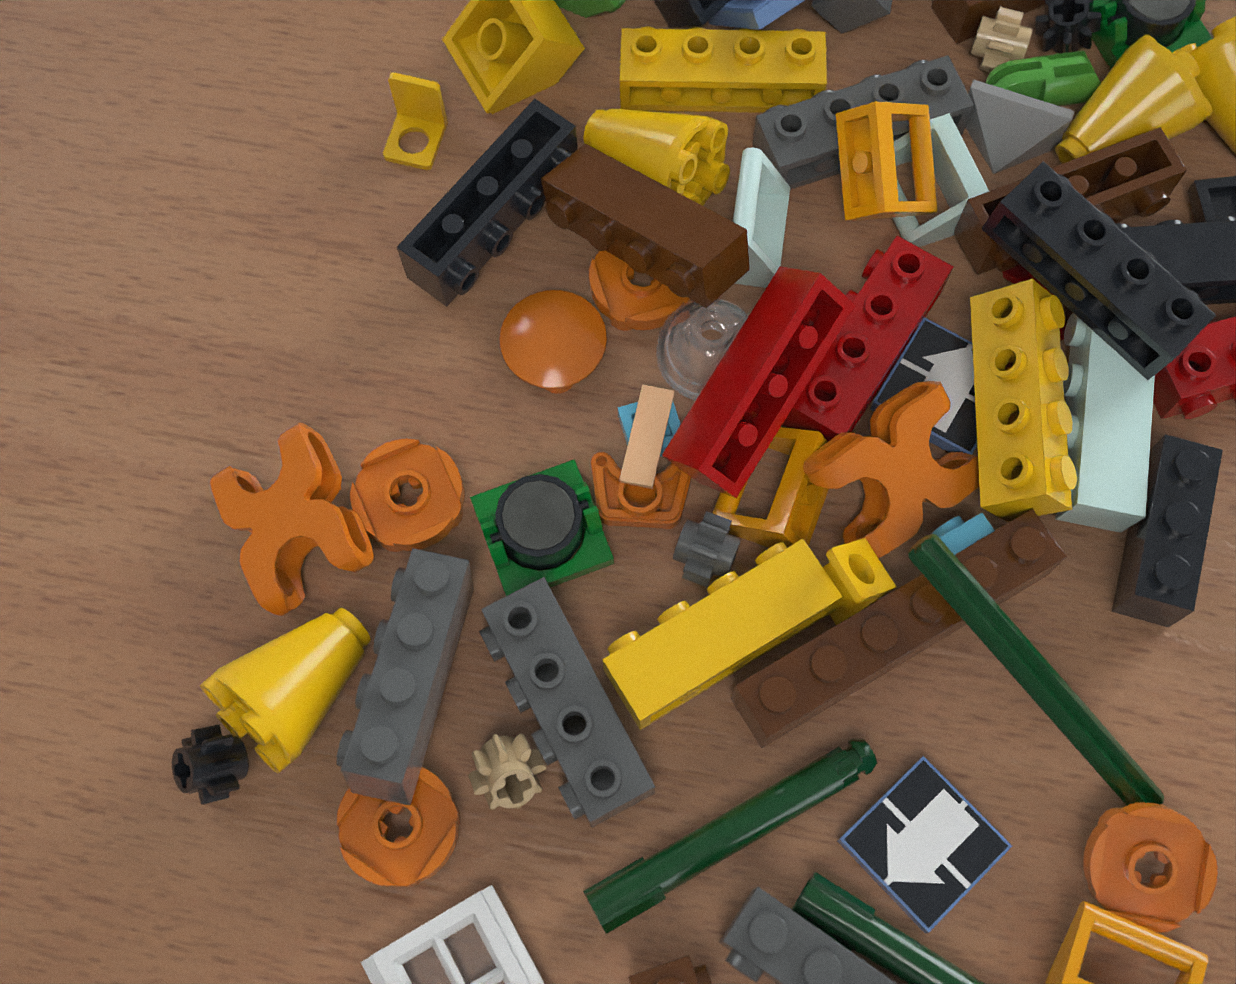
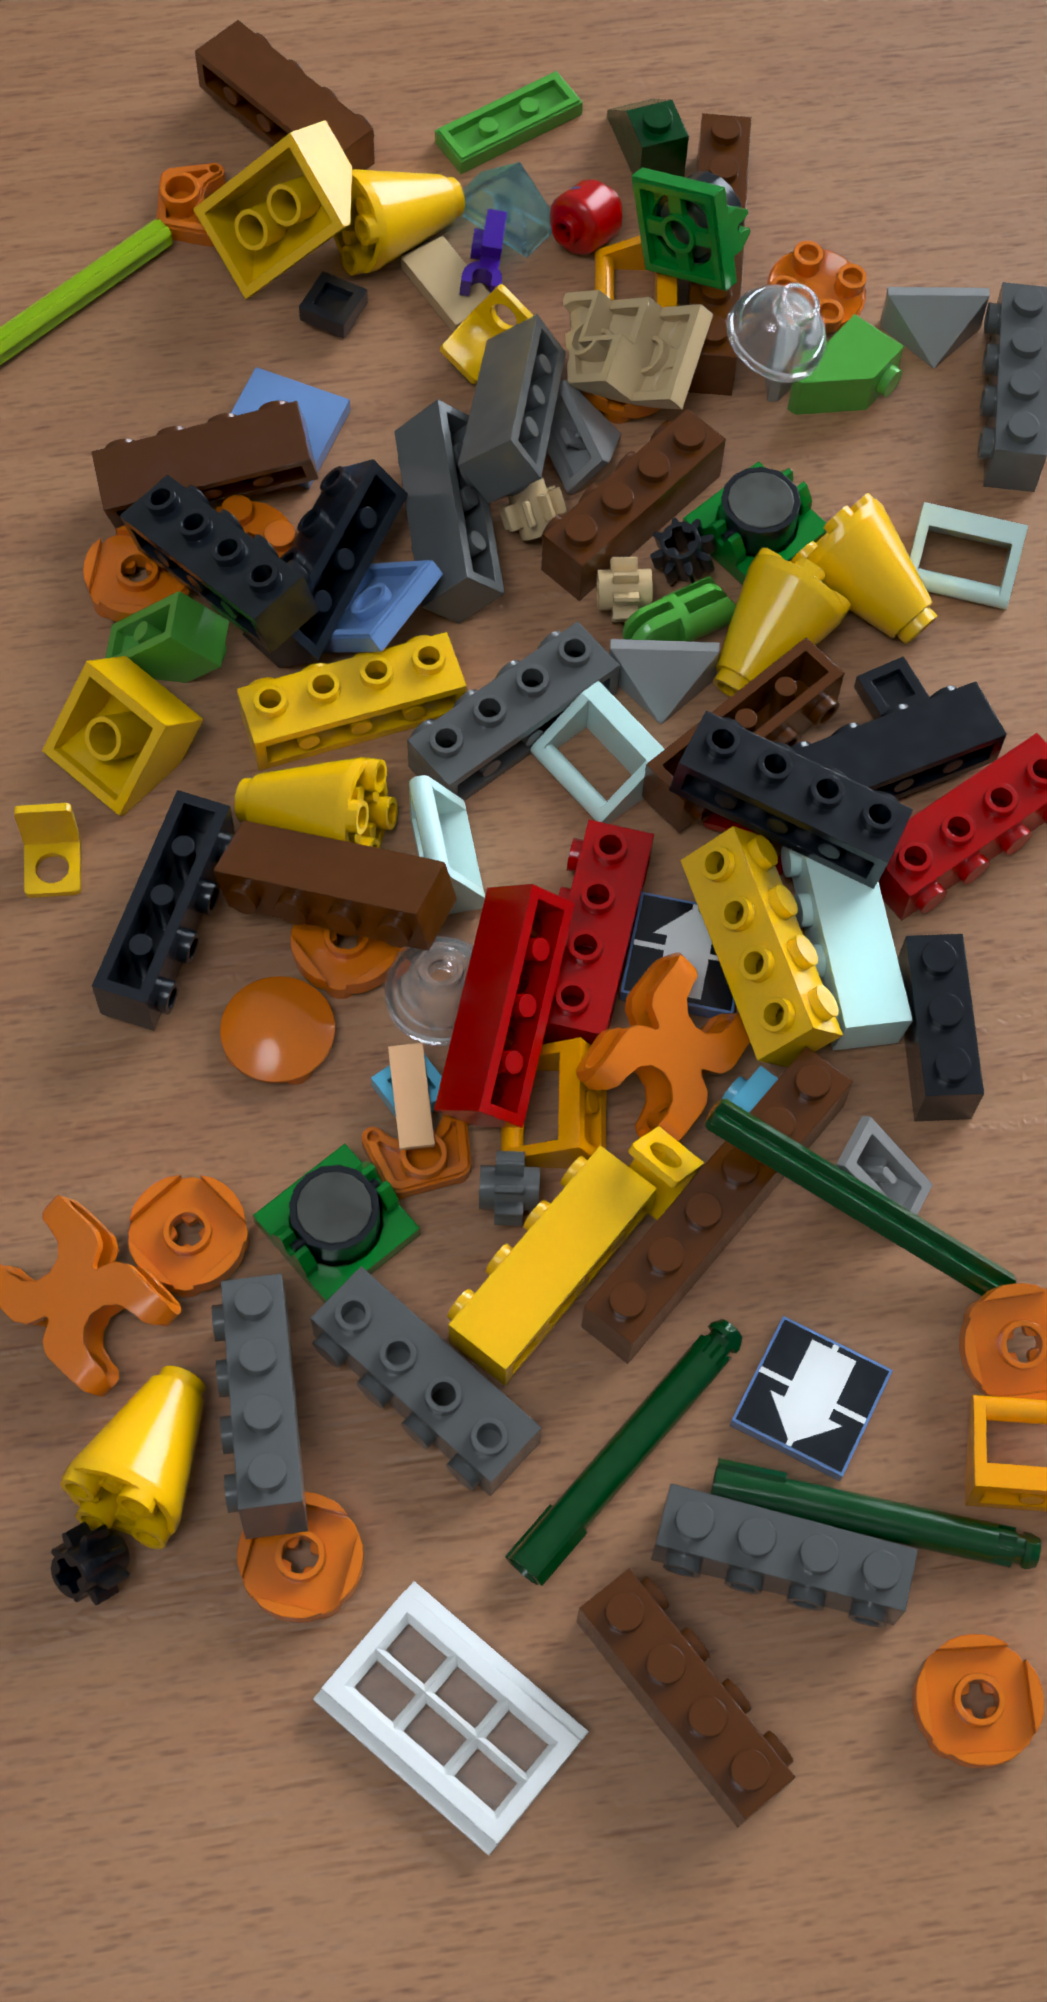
camera: 25 degrees left, 5 degrees down
(507, 771) = (391, 1467): tan gear -> none
(870, 165) = (538, 755): light orange tile -> none
(1069, 647) = (884, 1166): none -> light grey slope

